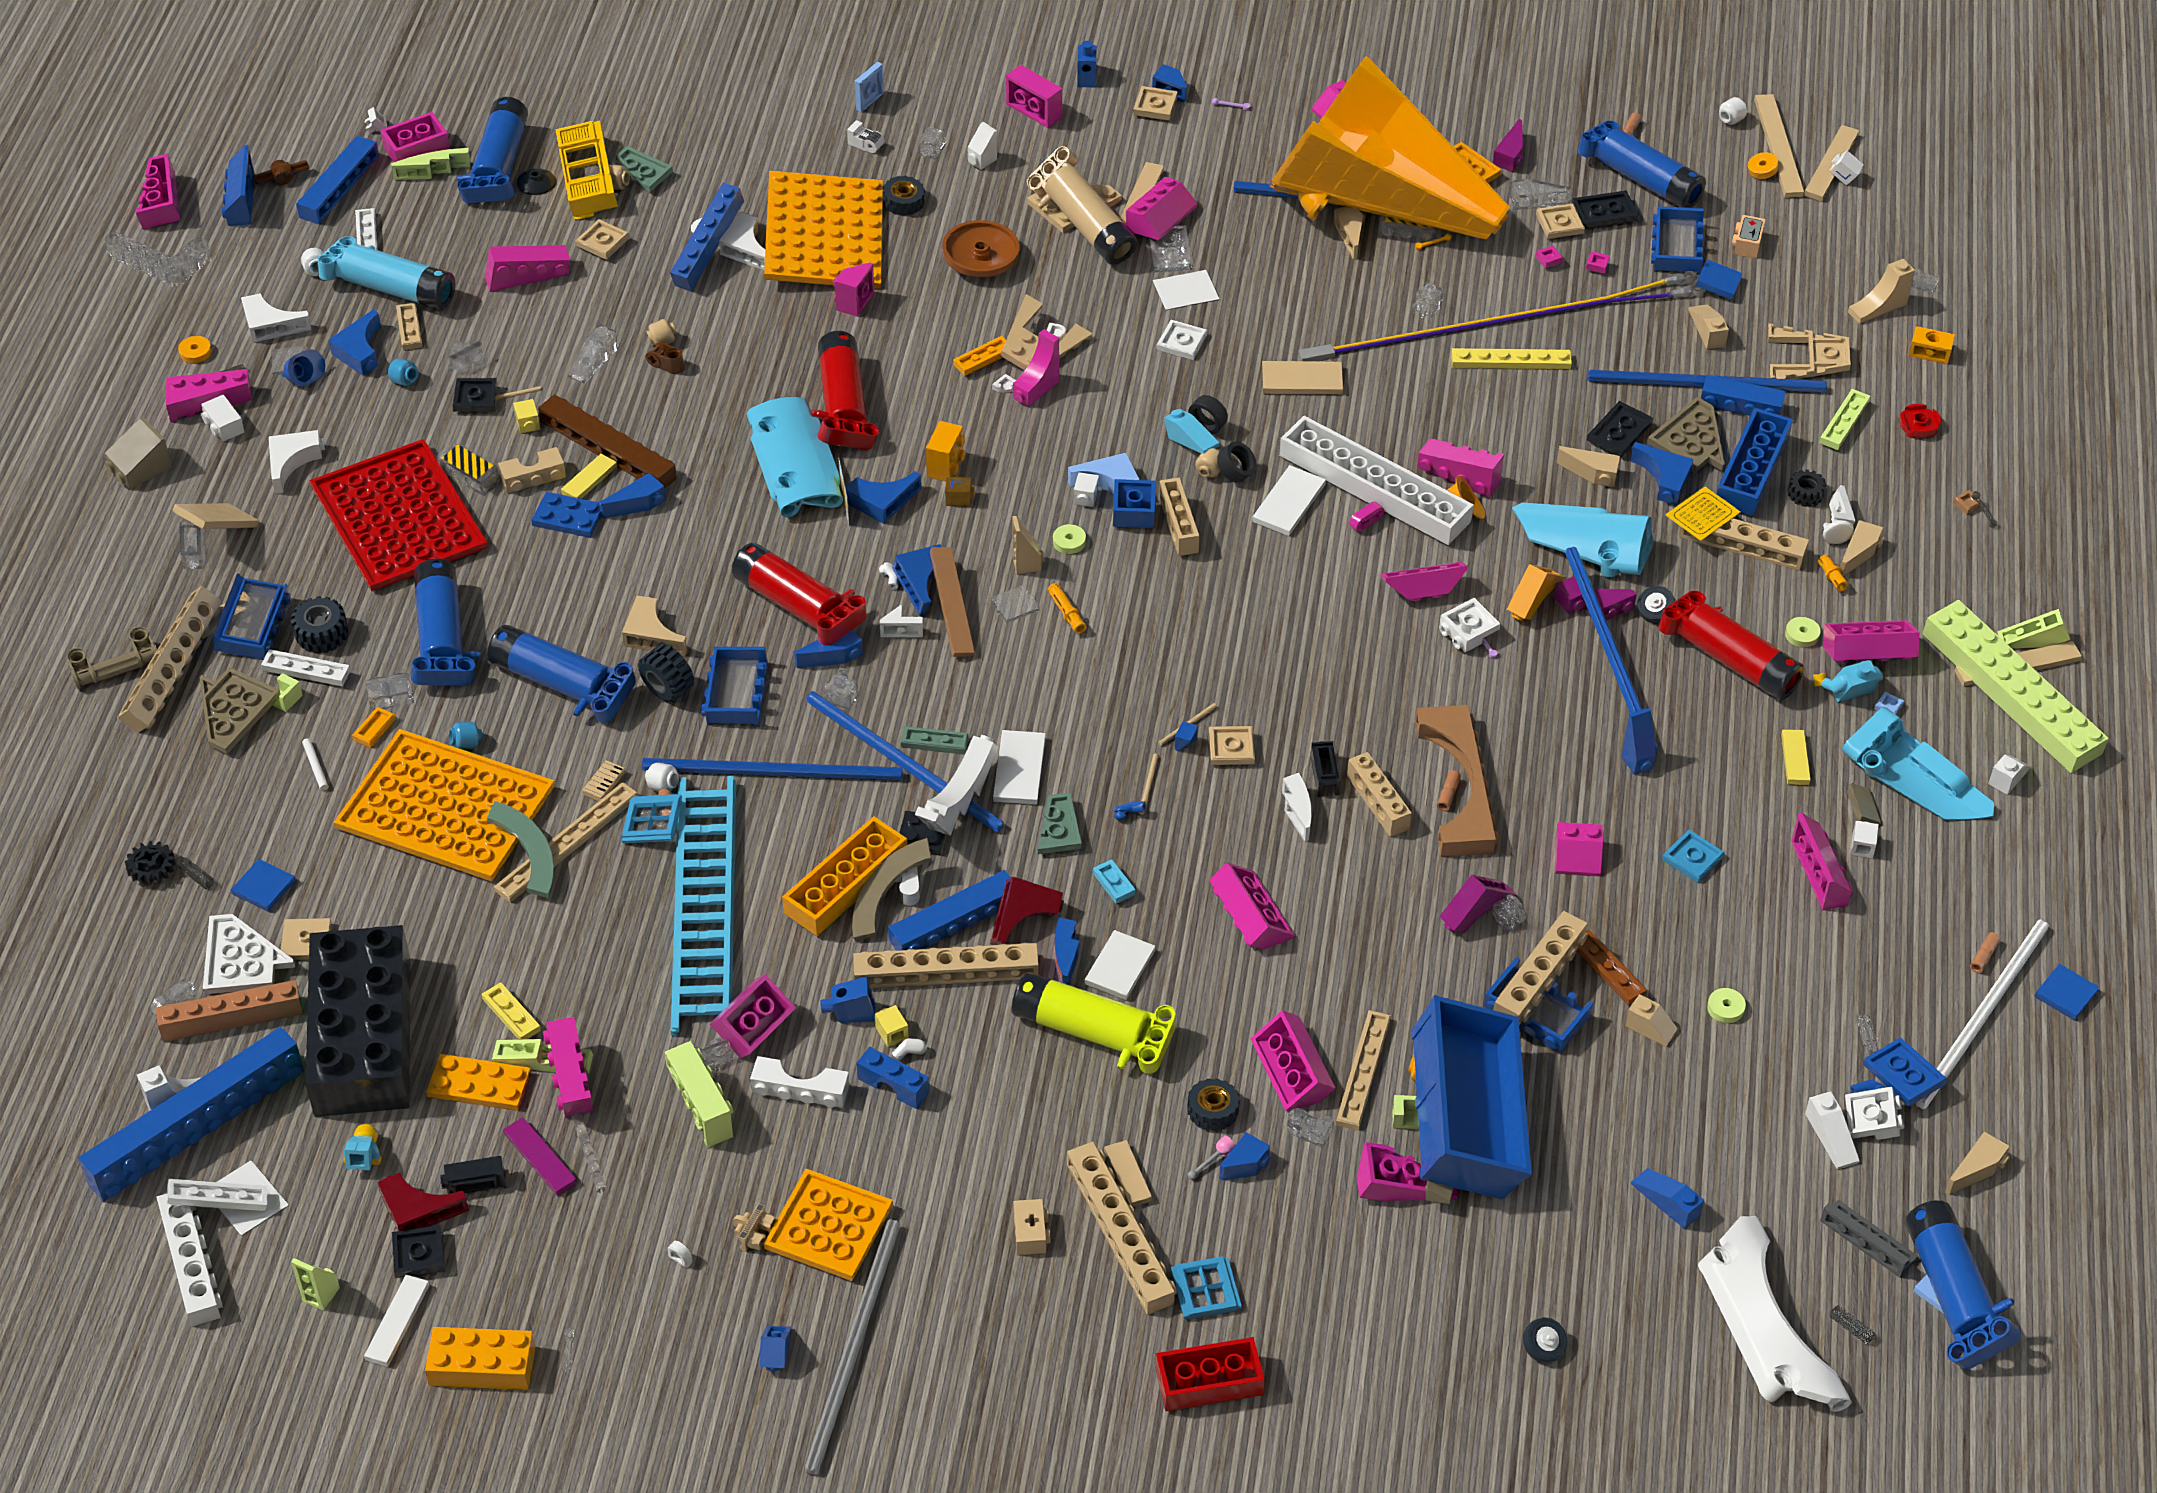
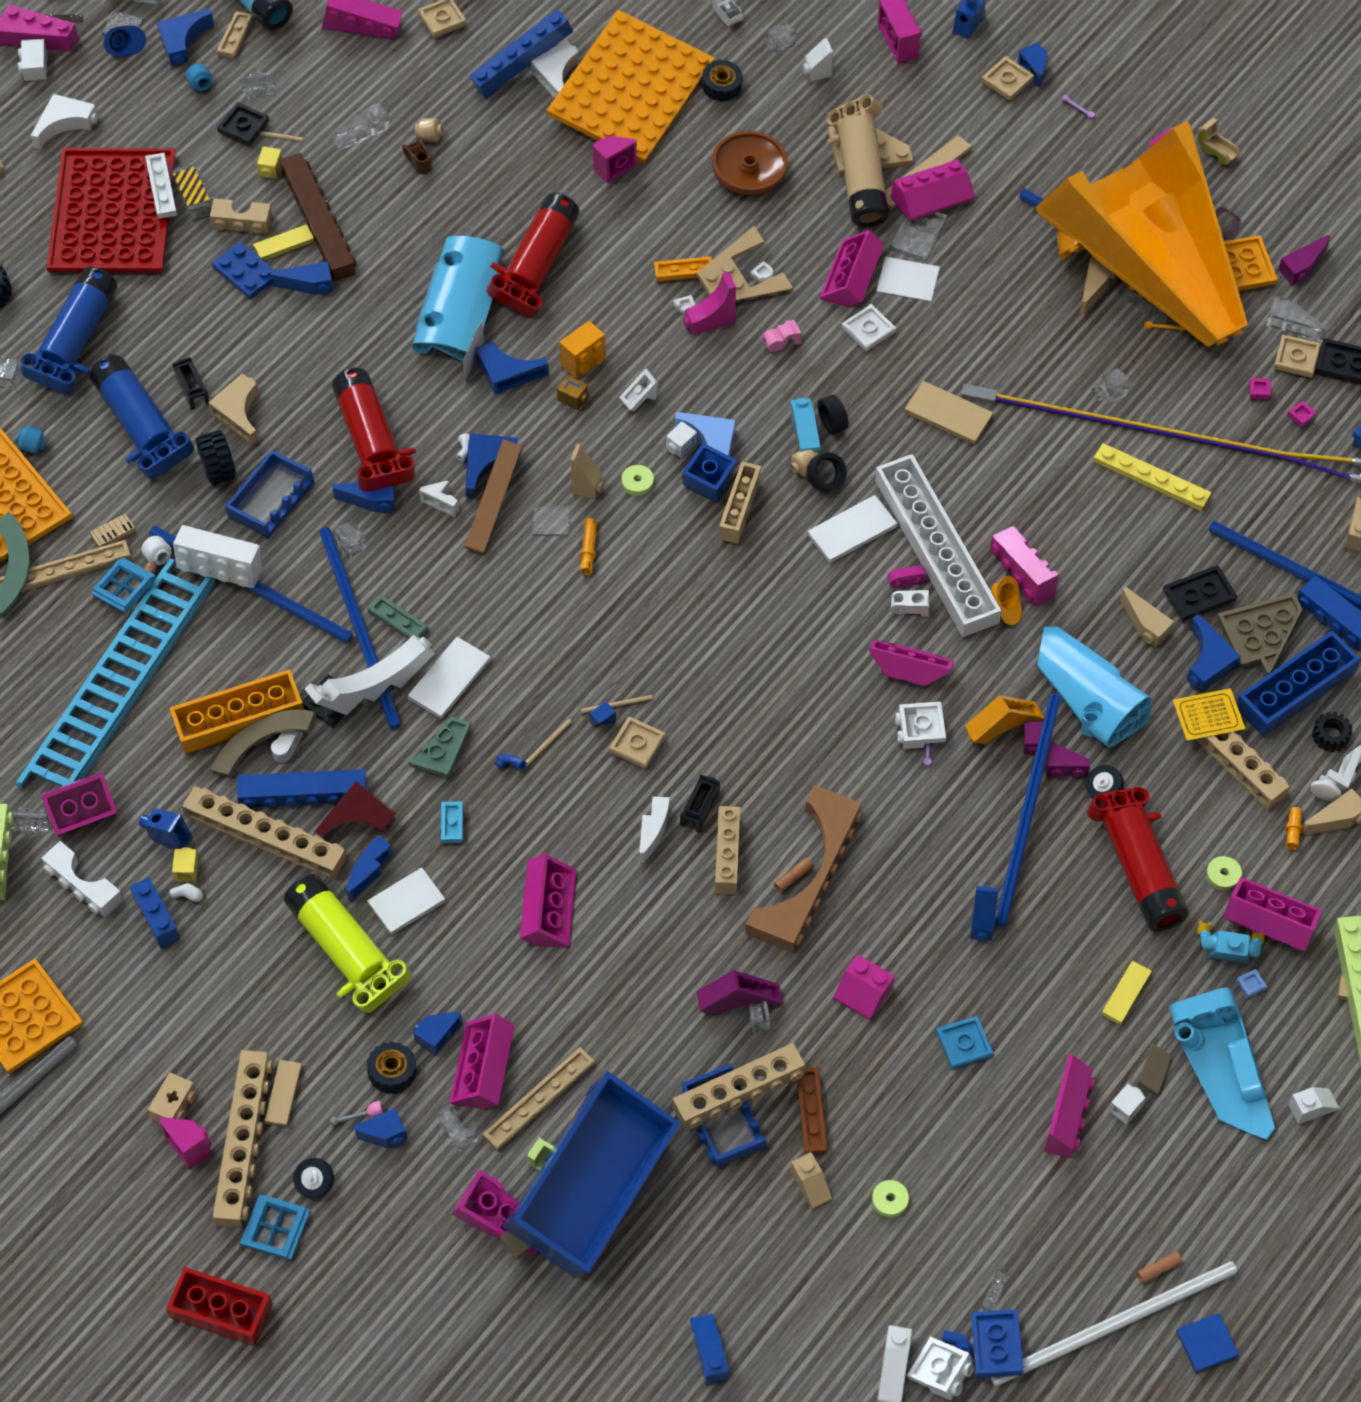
camera: 30 degrees right, 10 degrees up
(437, 472) = (161, 185): none -> white plate
(587, 626) = (182, 367): none -> black window
(734, 751) = (217, 556): none -> white brick
(1020, 464) = (643, 387): none -> white slope
(1071, 1250) = (187, 1140): none -> dark pink slope
(1110, 376) = (777, 338): none -> bright pink leg
(1134, 298) = (852, 269): none -> dark pink slope
(1212, 1227) = (313, 1178): none -> black wheel
(1230, 1056) = (437, 1030): none -> blue slope
(1386, 534) = (911, 602): none -> white leg

